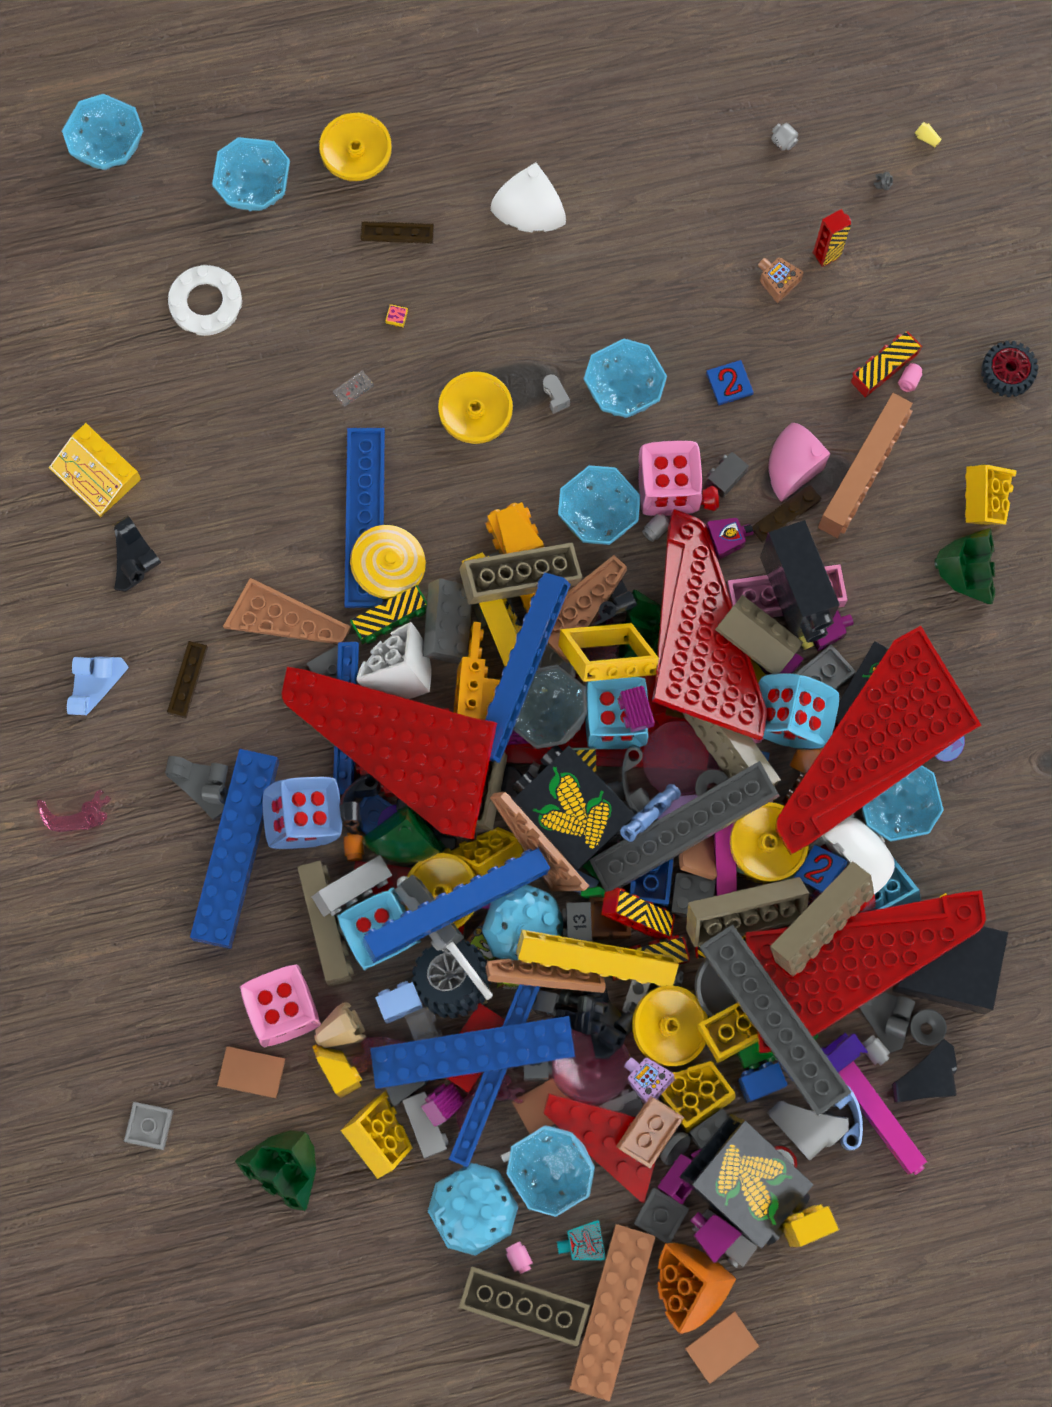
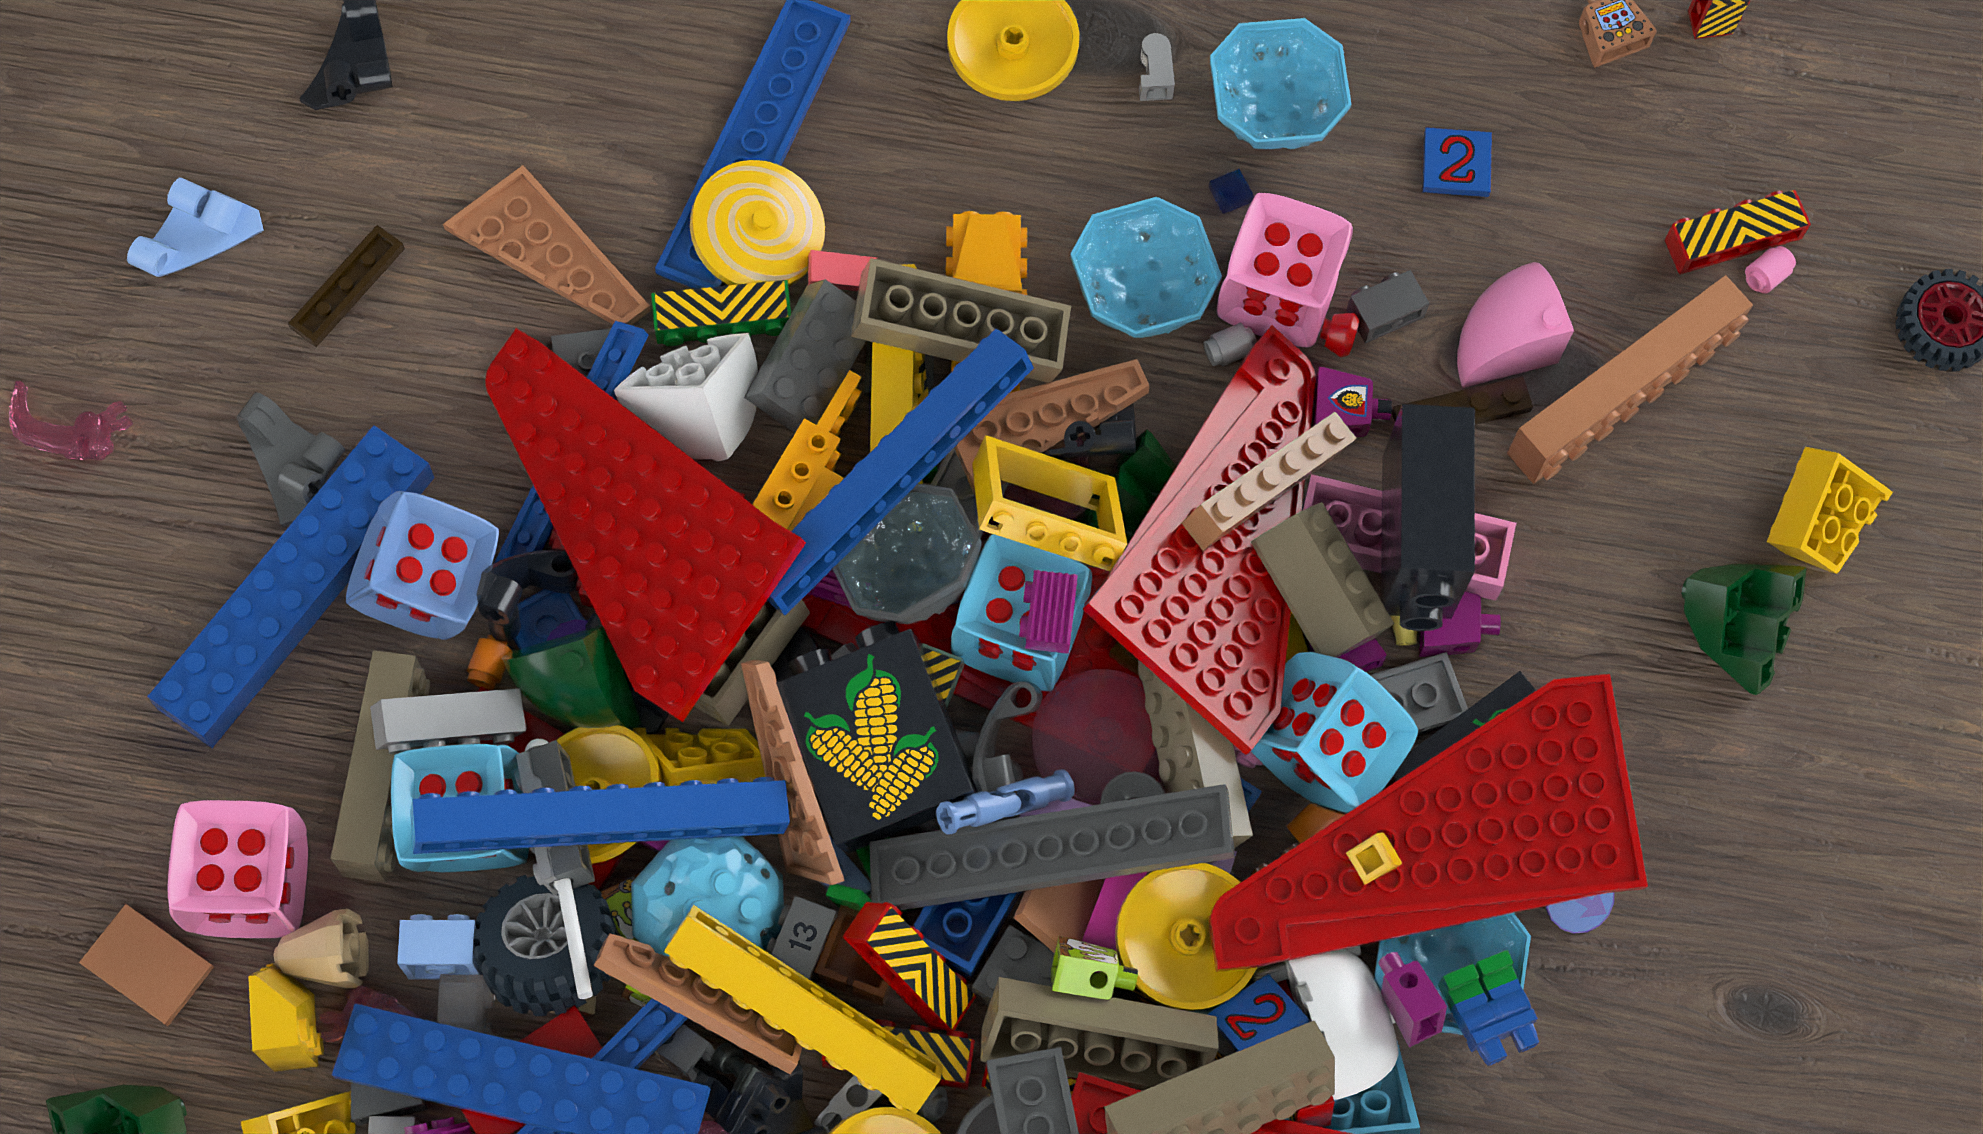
camera: 20 degrees right, 5 degrees down
(441, 568) = (837, 268): none -> coral tile
(621, 444) = (1231, 191): none -> clear blue plate
(711, 594) = (1268, 481): none -> brick
(728, 880) = (1075, 968): none -> lime torso
(844, 766) = (1374, 858): none -> yellow slope
(891, 828) = (1411, 999): none -> magenta torso
(929, 816) = (1490, 1007): none -> blue hips

